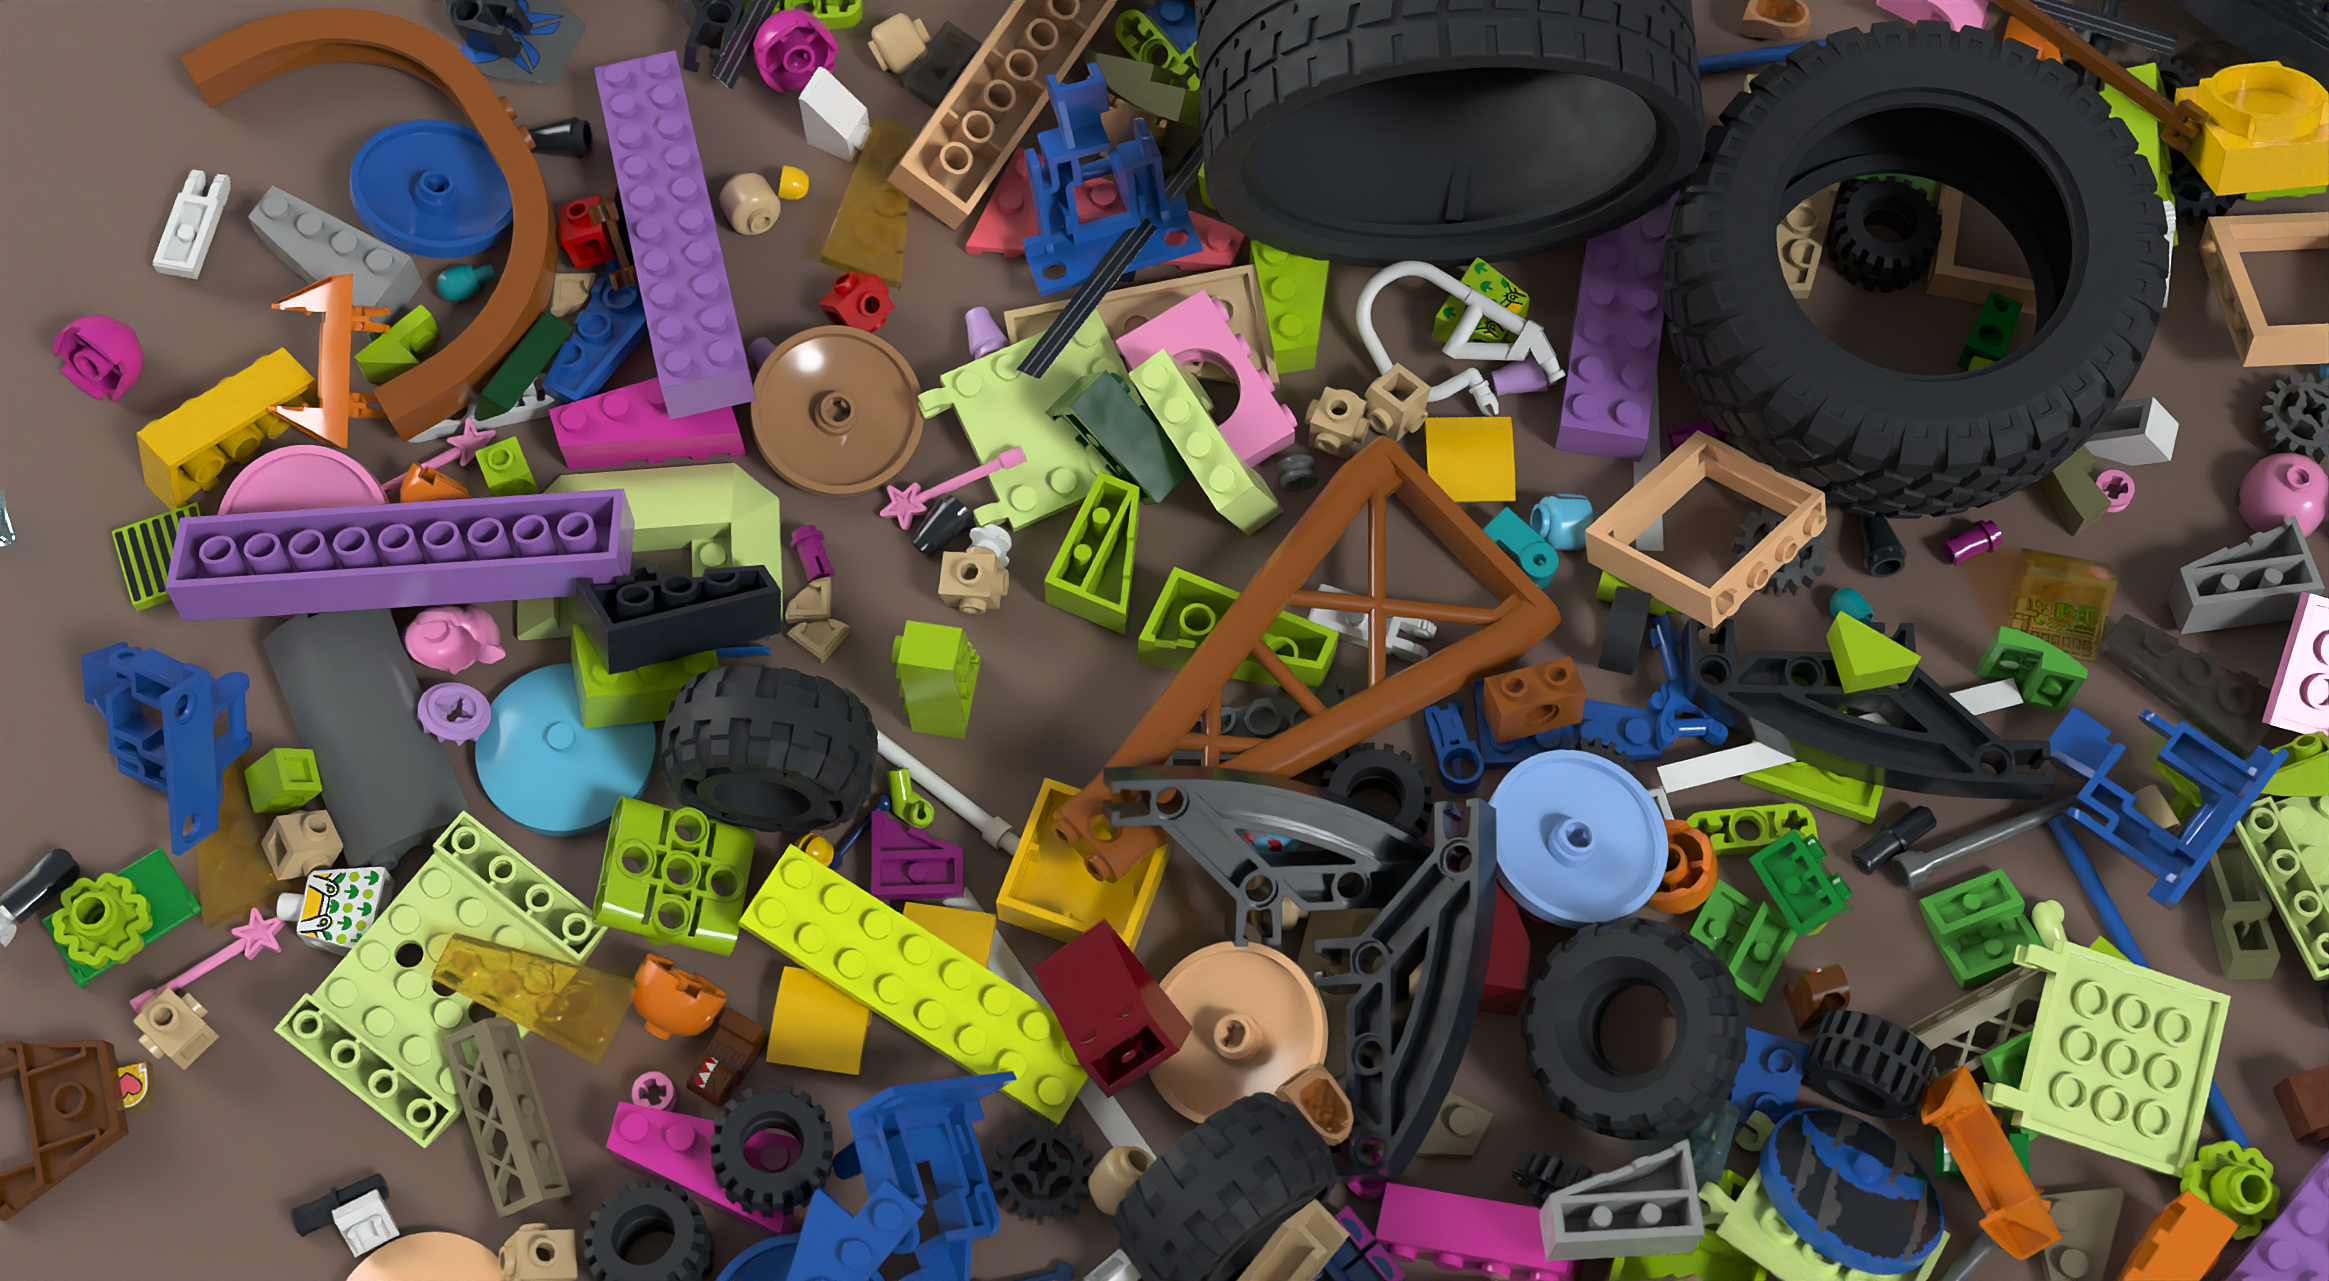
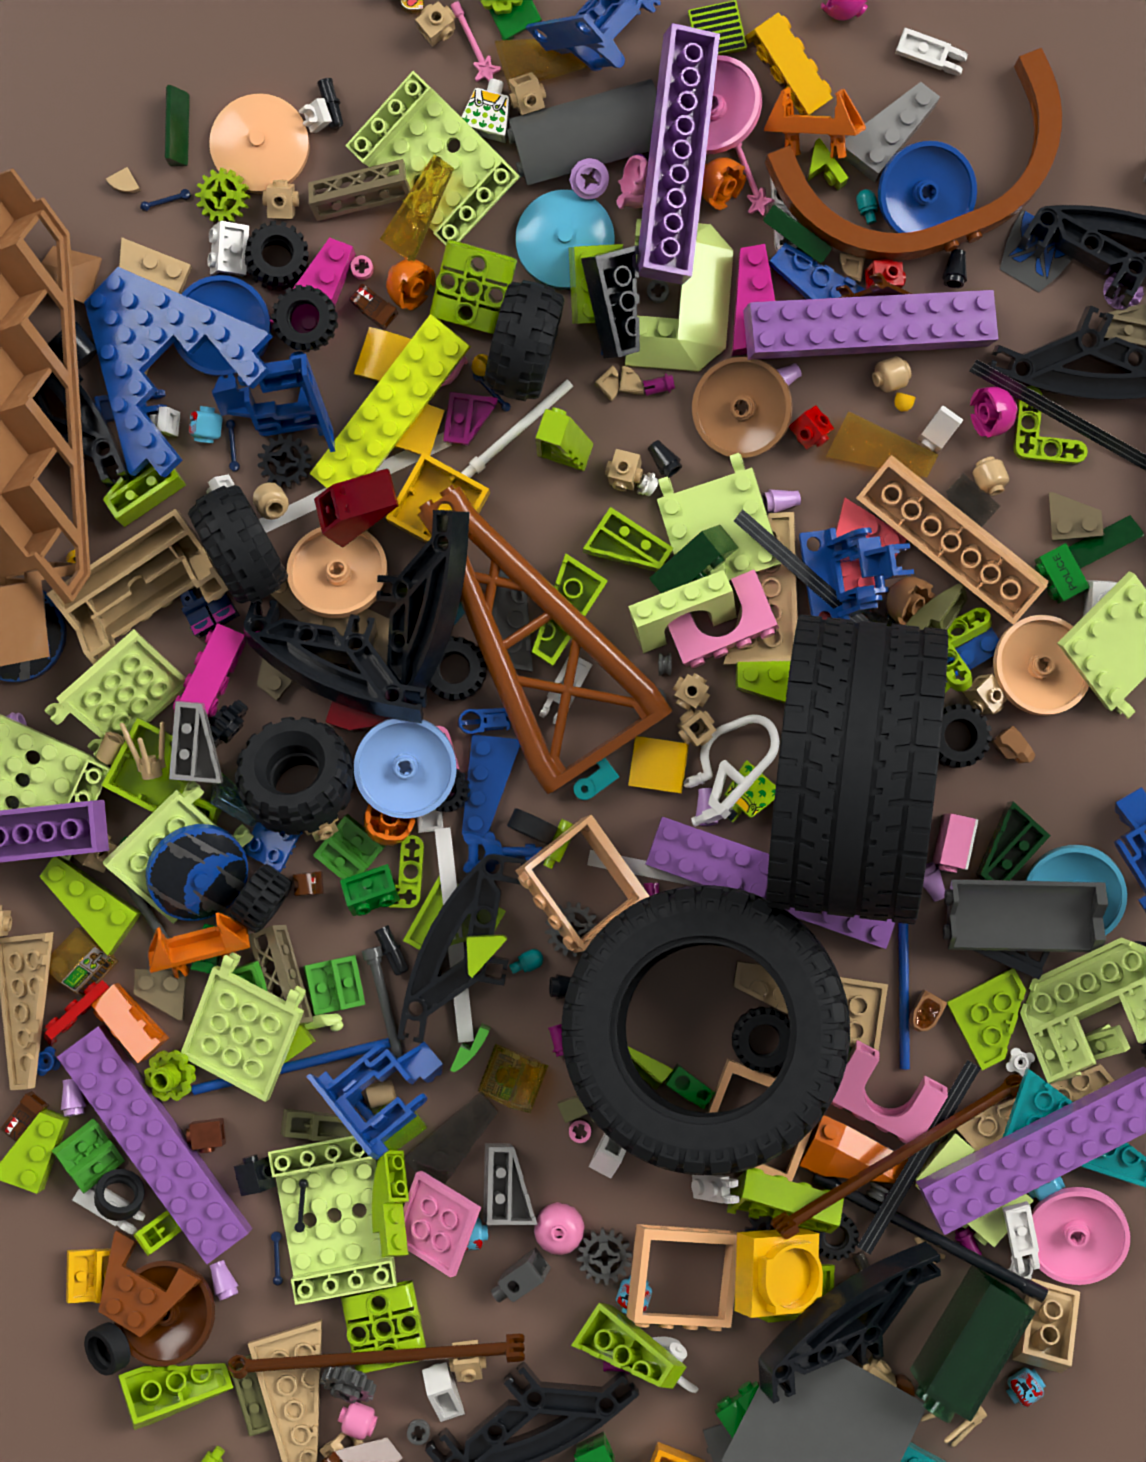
camera: 100 degrees right, 20 degrees up
(283, 780) = (565, 85): lime brick -> none
(506, 469) = (735, 219): lime brick -> none
(906, 802) = (502, 419): lime arm -> none
(909, 503) = (682, 444): bright pink piece -> none
(1320, 1101) = (283, 601): rock -> none
(1533, 700) = (497, 765): dark orange brick -> none
(1563, 520) = (608, 809): medium azure head -> none

